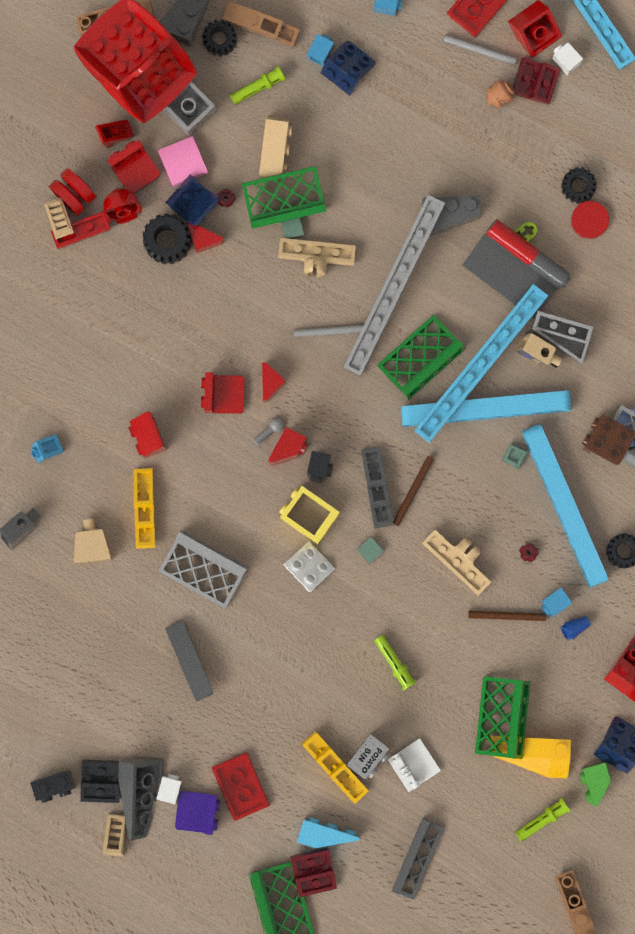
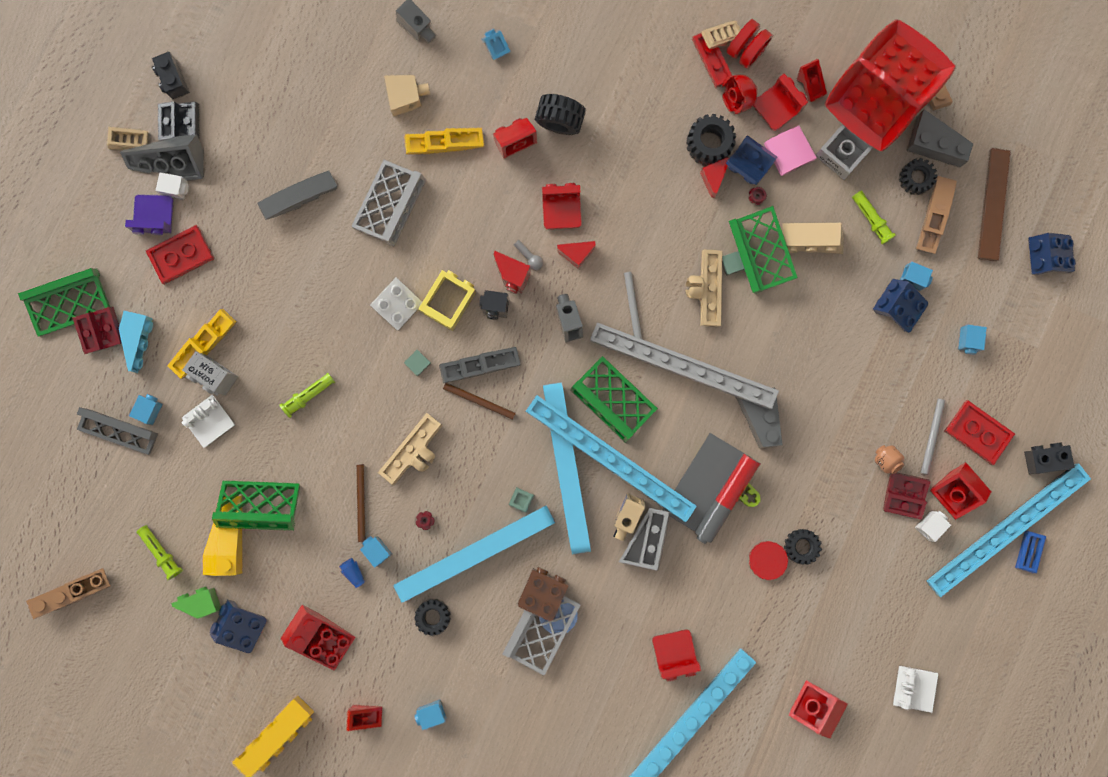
camera: 80 degrees right, 0 degrees up
(130, 387) = (560, 114): none -> black tyre
(345, 392) = (569, 318): none -> dark grey torso
(397, 826) = (146, 409): none -> dark azure brick

